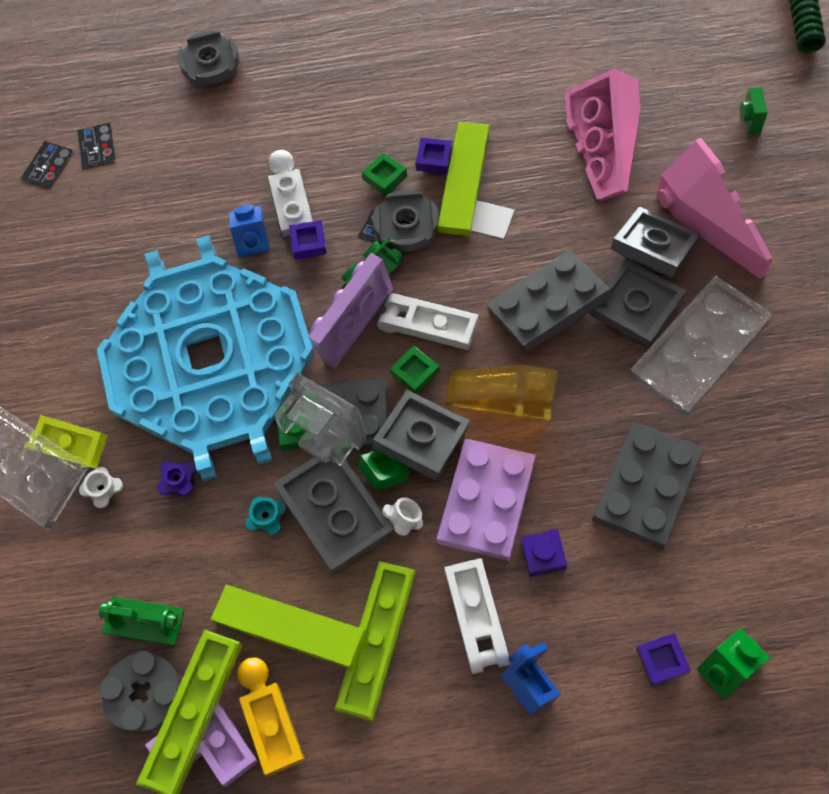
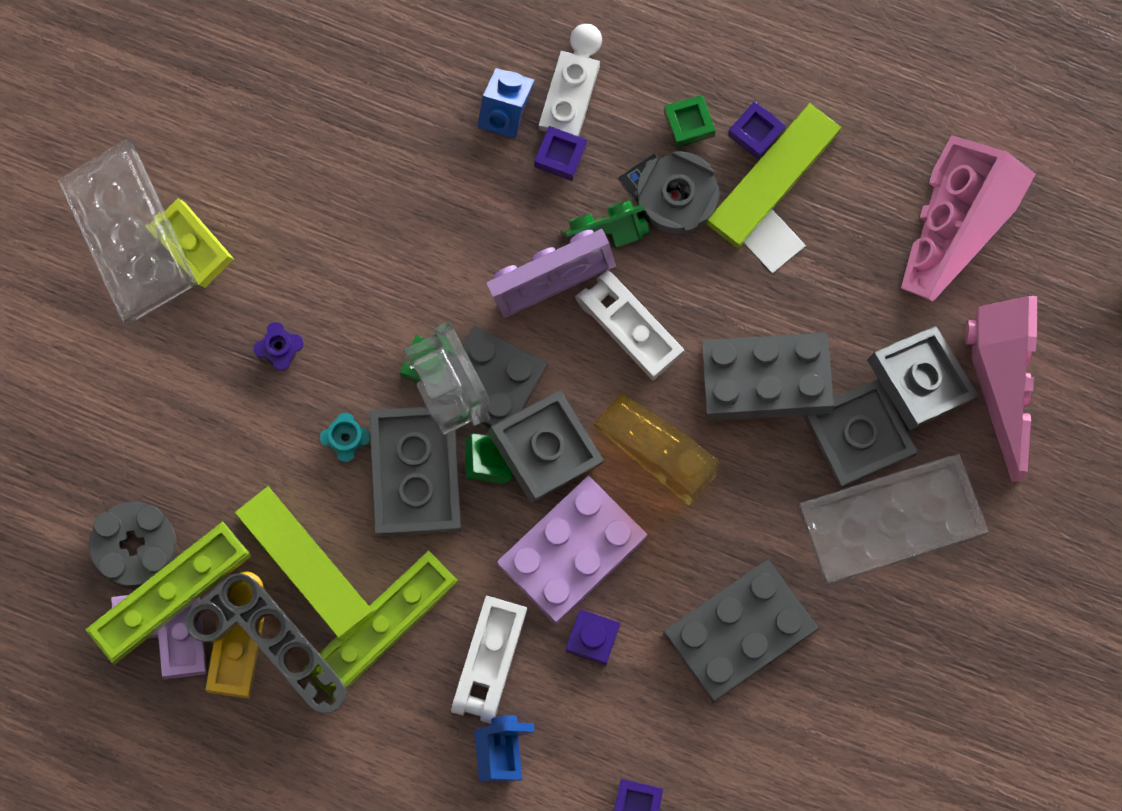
camera: 20 degrees right, 10 degrees up
(96, 478) = (199, 299): white plate -> none
(141, 620) = (169, 474): green hinge -> none
(205, 409) = (363, 288): medium azure plate -> none
(305, 704) = (275, 649): none -> dark grey beam
(404, 515) = (478, 520): white plate -> none
(414, 370) = (582, 371): green plate -> none

